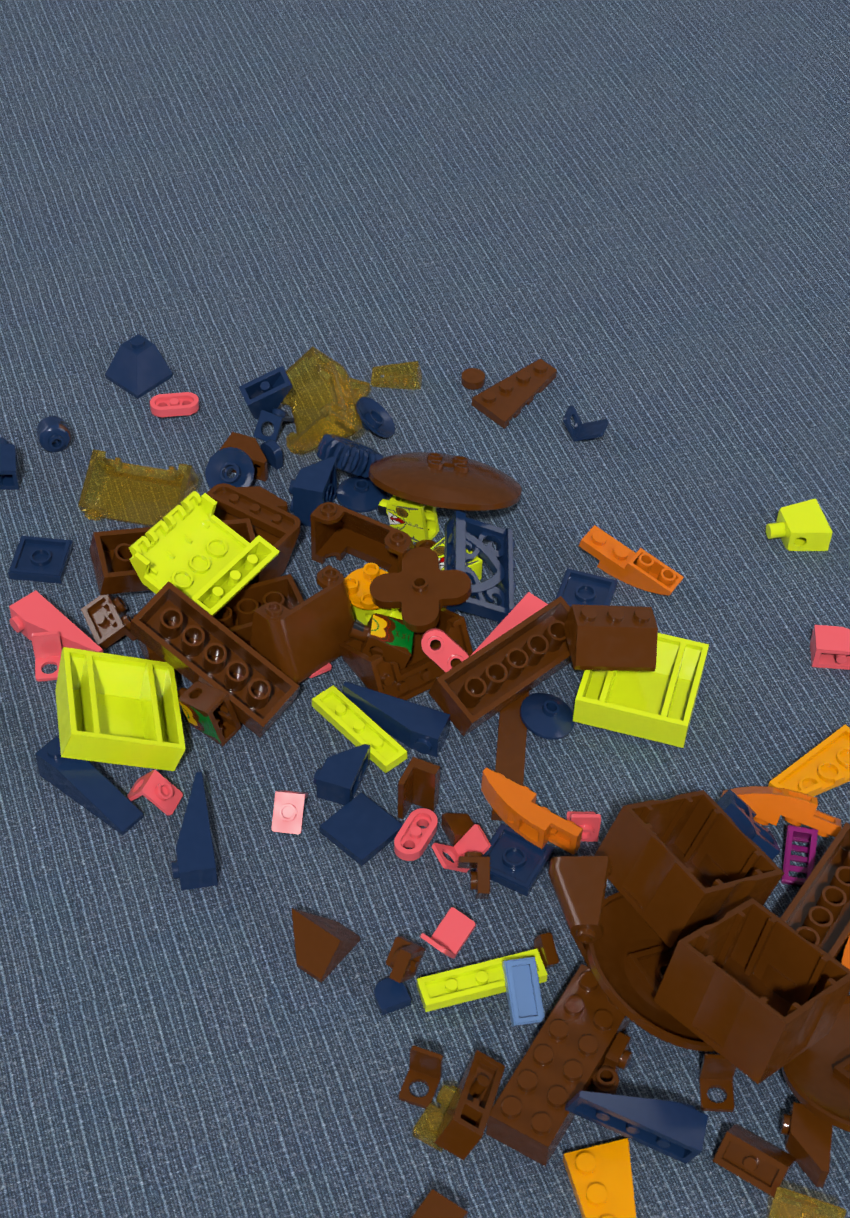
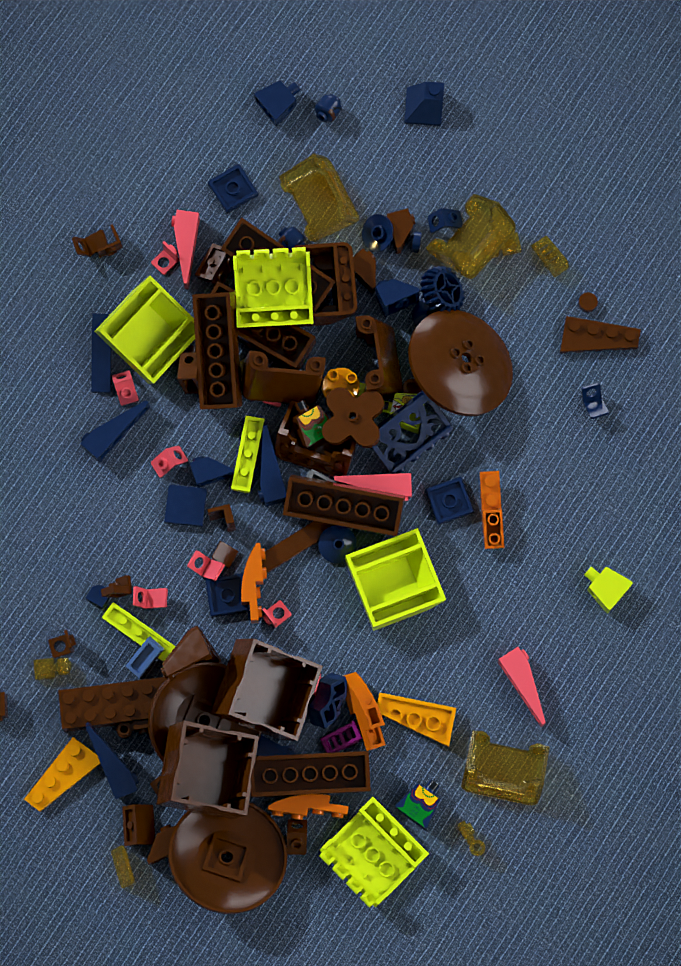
camera: 55 degrees right, 30 degrees up
(174, 404) = (414, 150): coral plate -> none
(266, 391) = (456, 198): dark blue slope -> none
(320, 943) = (101, 540): reddish brown slope -> none
(375, 417) = (501, 277): dark blue dish -> none
(415, 837) = (201, 535): coral plate -> none
(446, 652) = (324, 462): coral plate -> none
(470, 1106) = (60, 678): reddish brown slope -> none
(481, 878) = (196, 587): reddish brown bracket -> none
(612, 637) = (394, 548): reddish brown slope -> none

